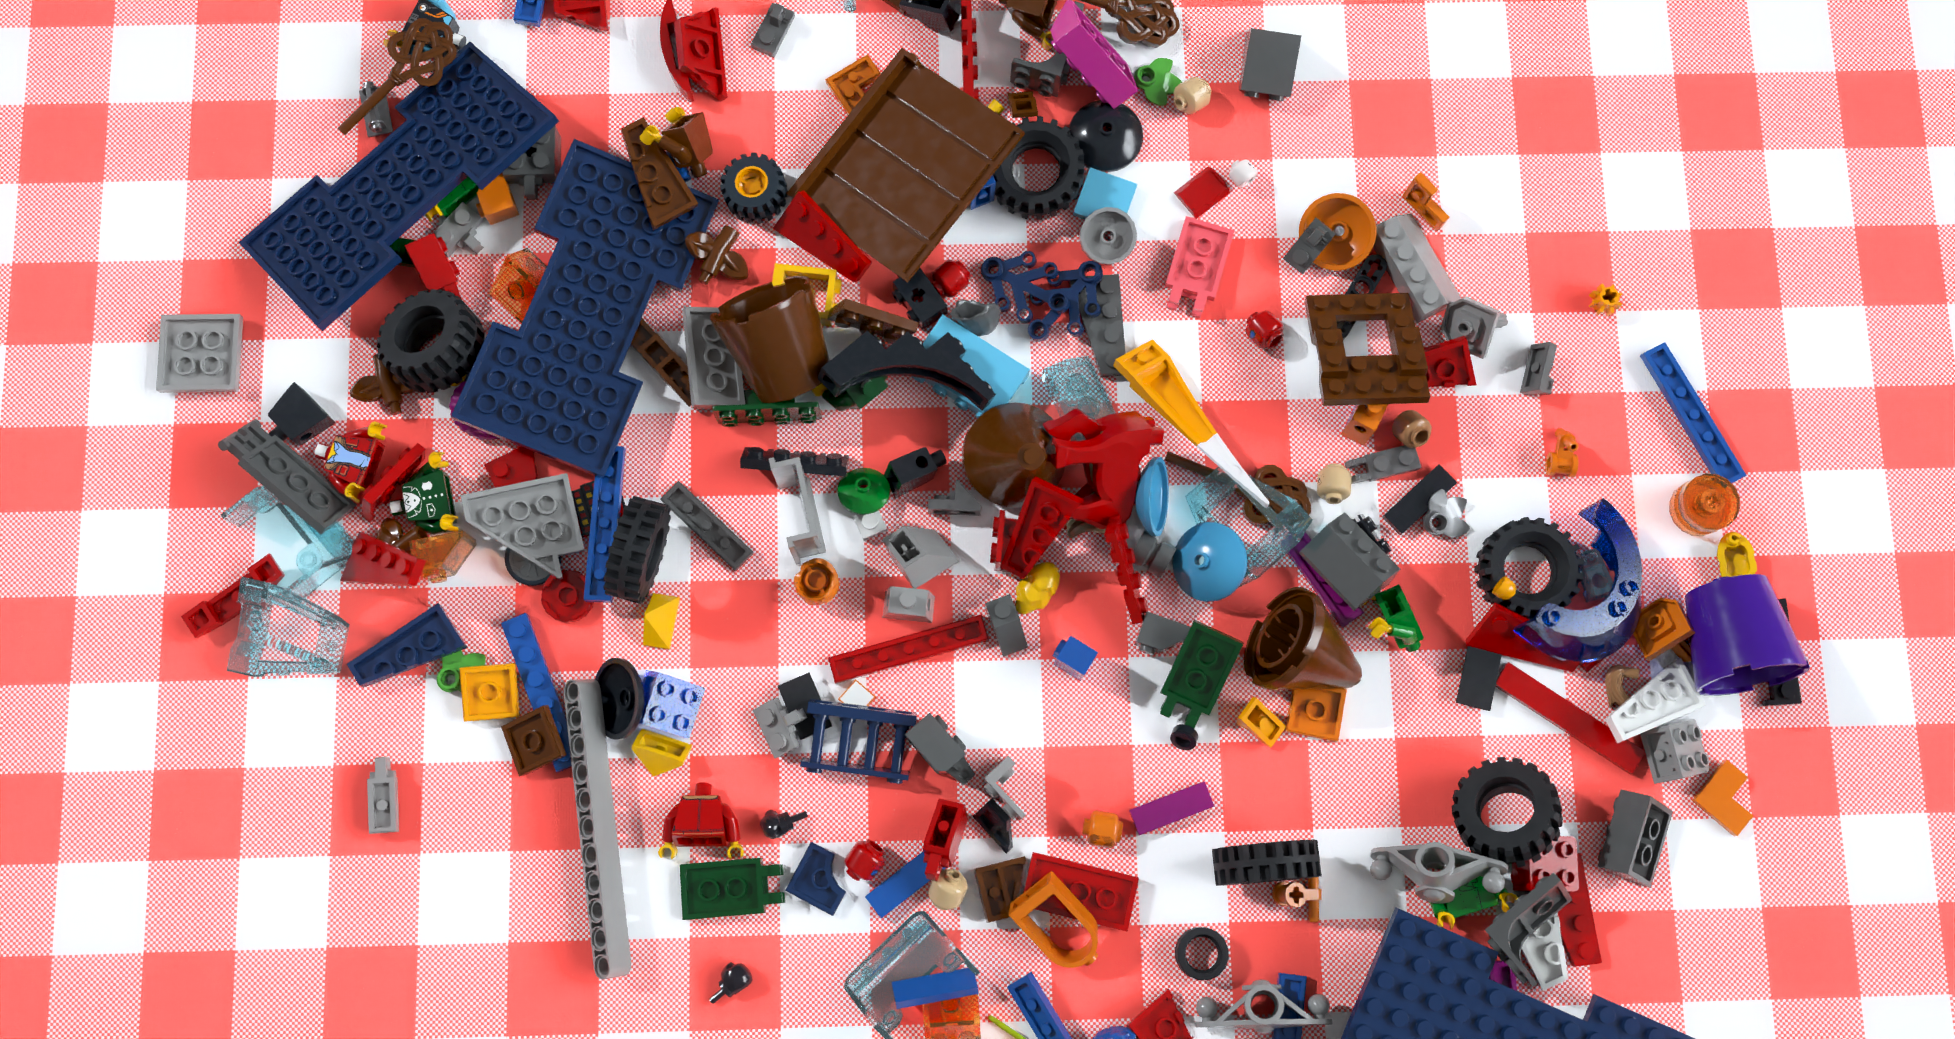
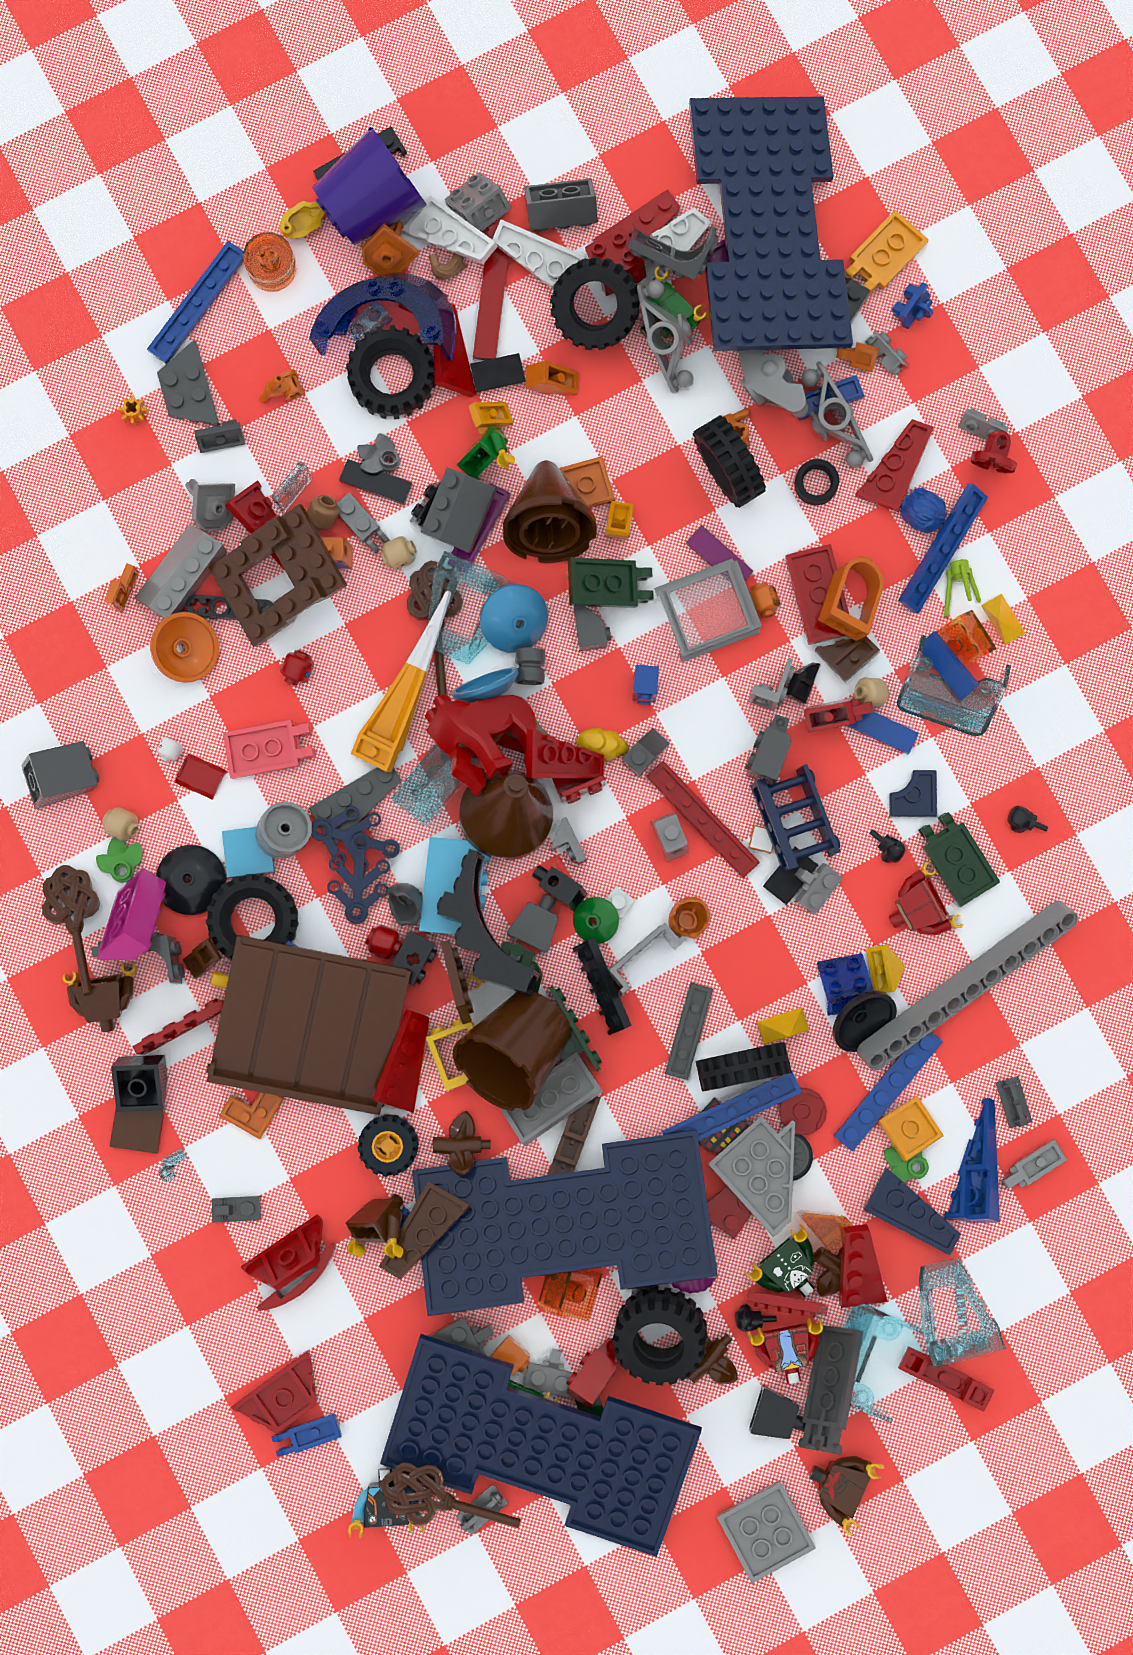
camera: 110 degrees left, 5 degrees up
(192, 444) = (843, 1487): none -> reddish brown torso
(397, 730) = (977, 1189): none -> blue wedge
(400, 438) = (750, 1320): none -> black piece
(456, 812) = (1014, 1102): none -> dark grey hinge
(533, 740) = (929, 1071): reddish brown tile -> none
(864, 860) = (883, 767): red head -> none
(888, 429) = (536, 924): none -> dark grey torso
(919, 553) = (625, 846): light grey slope -> none
(1117, 533) = (552, 682): red wing -> none
(1121, 764) = (709, 609): none -> piece
(1184, 737) = (661, 572): black tile -> none
(1309, 245) = (207, 664): dark grey hinge -> none
(1332, 959) = (771, 383): none -> light grey piece
(1436, 646) = (490, 414): none -> light orange slope
(1445, 730) = (551, 379): none -> orange slope
(1452, 409) = (291, 487): none -> clear light blue tile
(1504, 588) = (421, 381): light orange hinge -> none
(1593, 781) = (535, 253): none -> white wing
(1605, 364) = (187, 387): none -> dark grey wing
(1717, 798) = (497, 158): orange tile -> none

